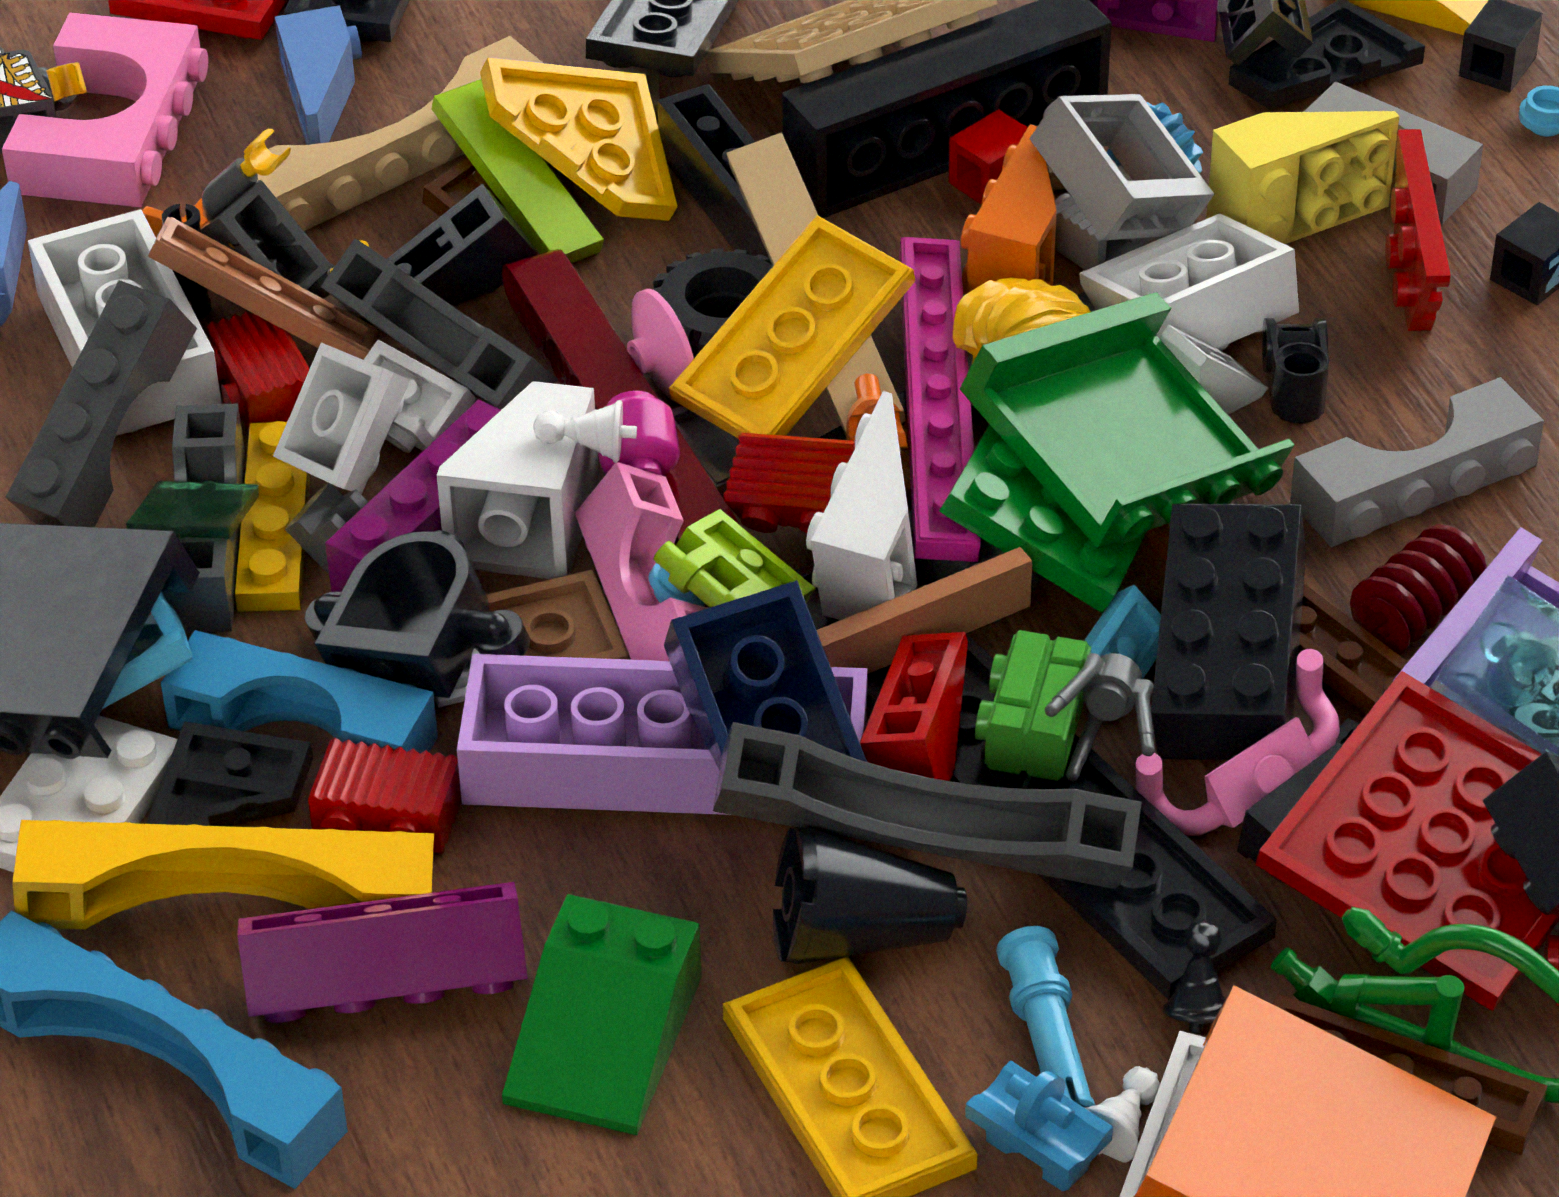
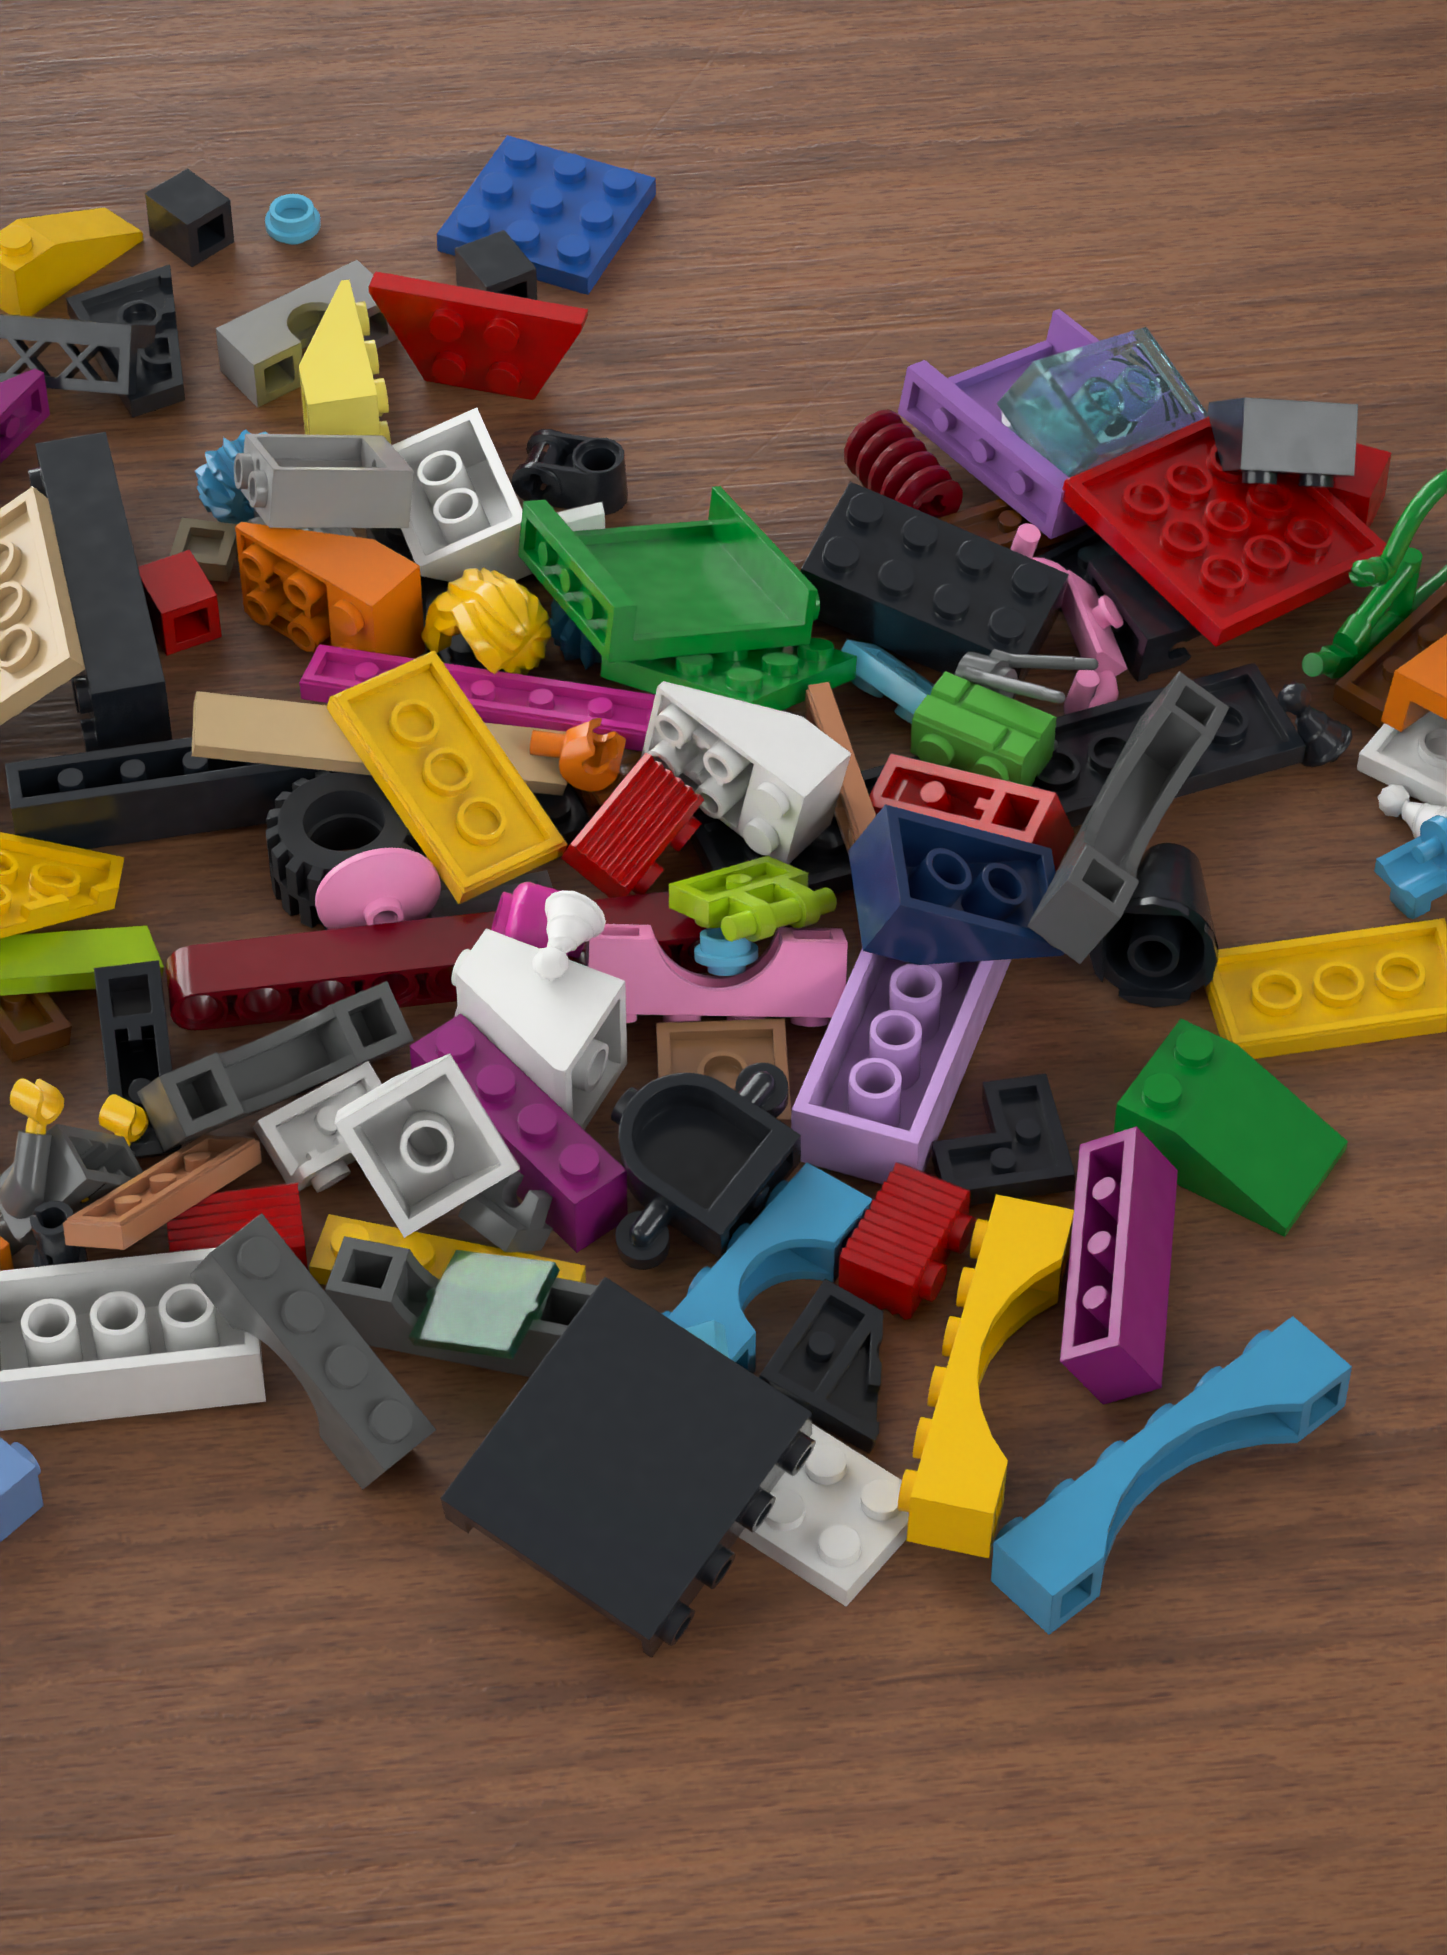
camera: 75 degrees left, 5 degrees up
(542, 865) = (1021, 1154): none -> black plate
(1041, 1000) = (1291, 836): medium azure pin -> none
(1358, 488) = (725, 387): light grey arch -> none

